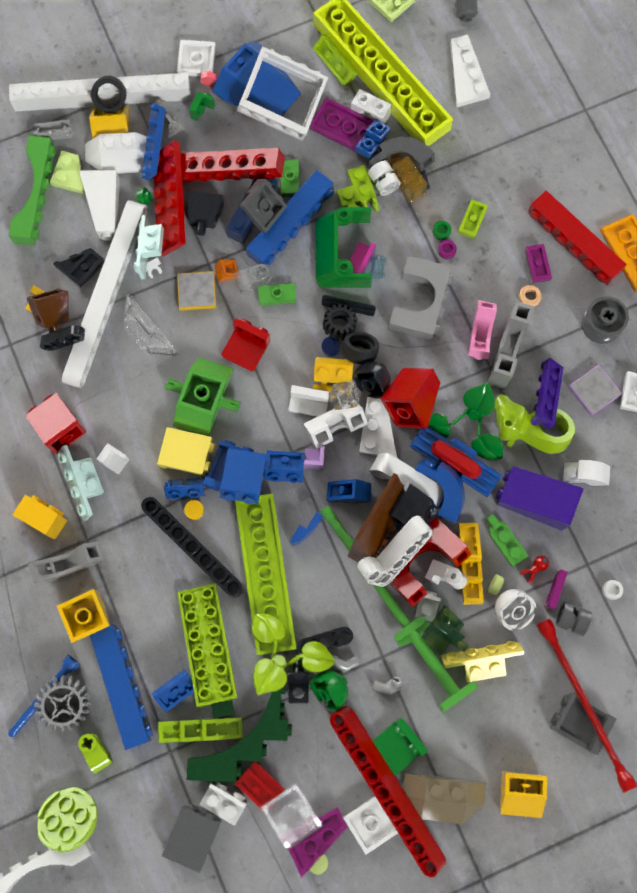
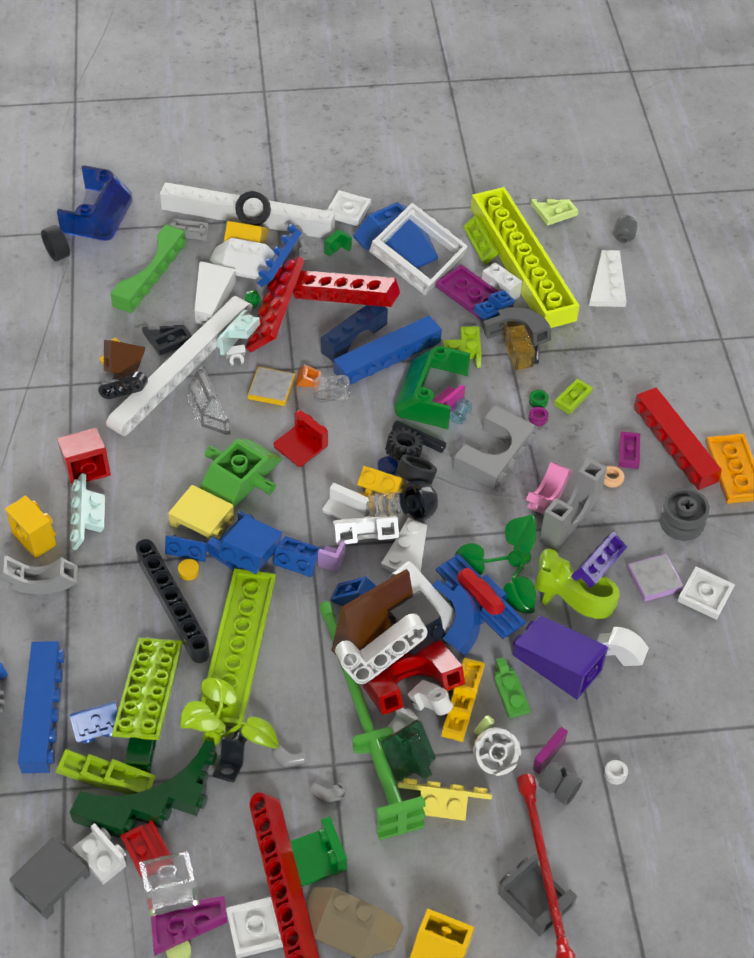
camera: 15 degrees right, 25 degrees down
(68, 173) = (187, 265): yellowish green wing -> none
(84, 615) = (33, 622): yellow slope -> none
(113, 459) = (126, 501): white panel -> none
(204, 210) = (306, 323): black torso -> none
(208, 78) = (352, 224): coral tile -> none
(263, 205) = (363, 324): dark grey plate -> none
(277, 294) = (350, 409): bright green plate -> none
(290, 178) = (401, 317): bright green plate -> none
(302, 533) = (294, 619): blue slope -> none
(330, 688) = (262, 771): green cylinder -> none
(337, 632) = (293, 723): black beam -> none
(384, 178) = (494, 340): white wheel -> none
(412, 397) = (453, 525): red slope -> none
(538, 565) = (540, 722): red arm -> none

